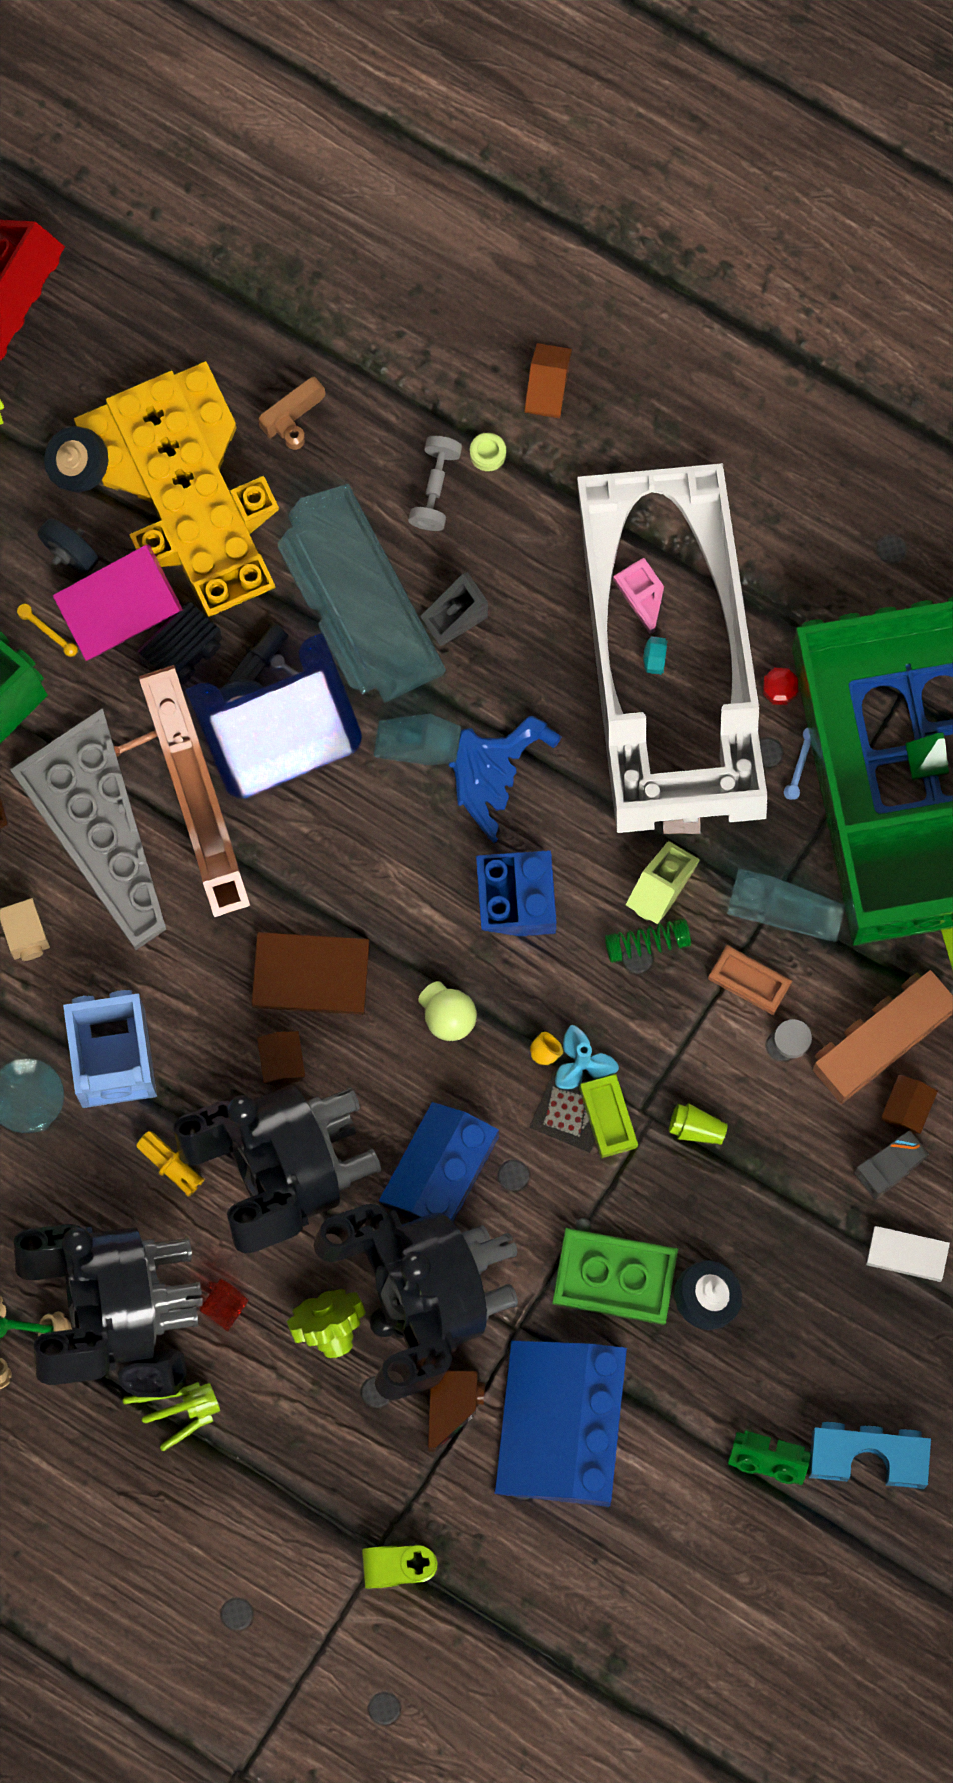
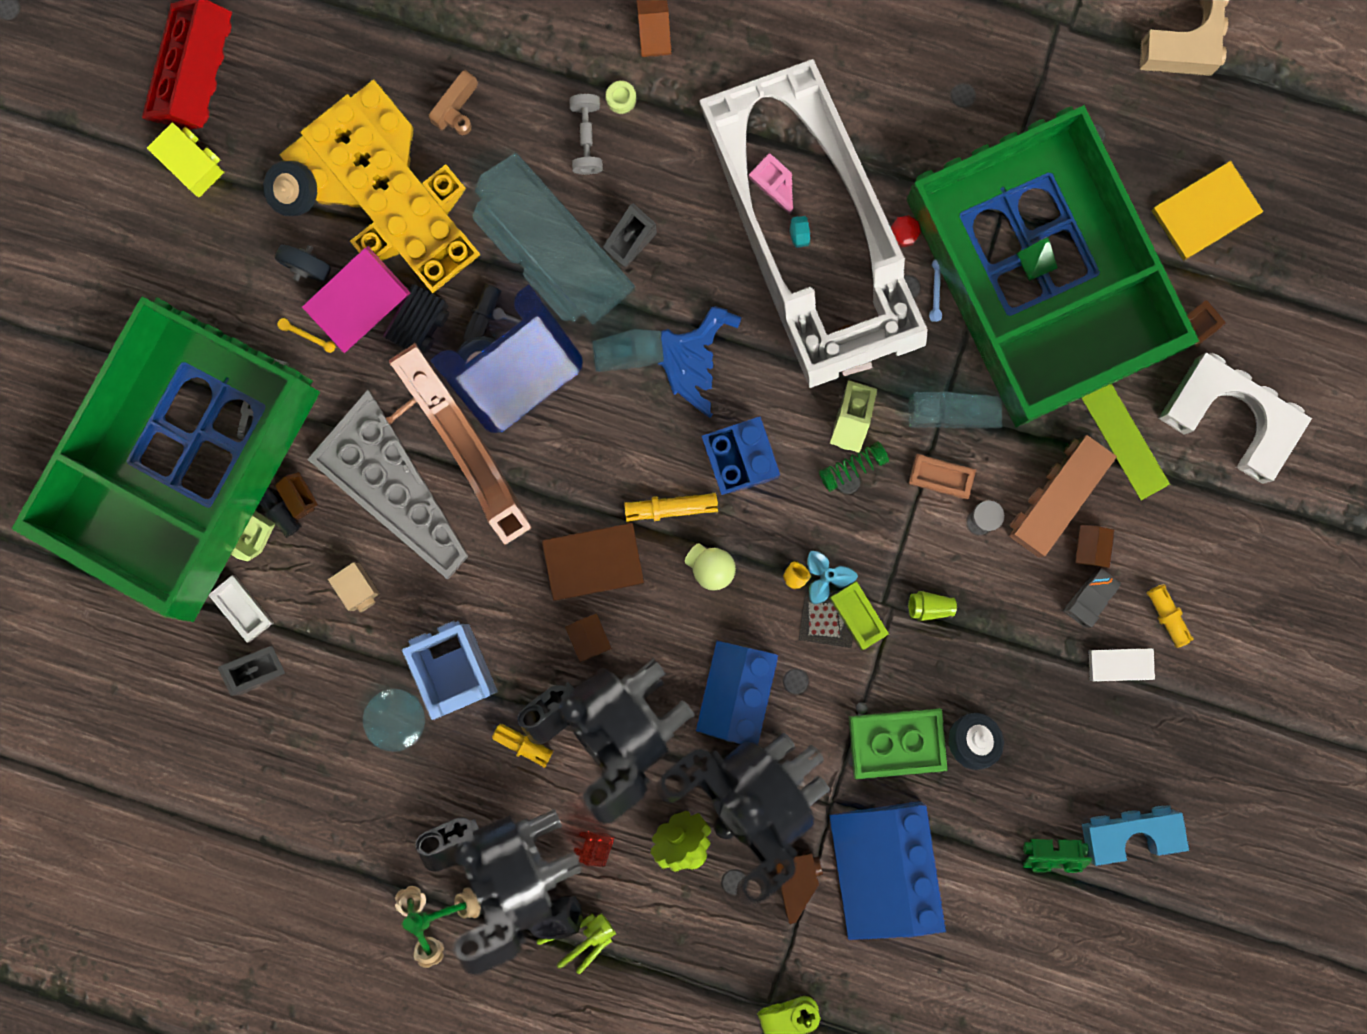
camera: 15 degrees left, 10 degrees up
(418, 932) = (670, 507): none -> yellow pin

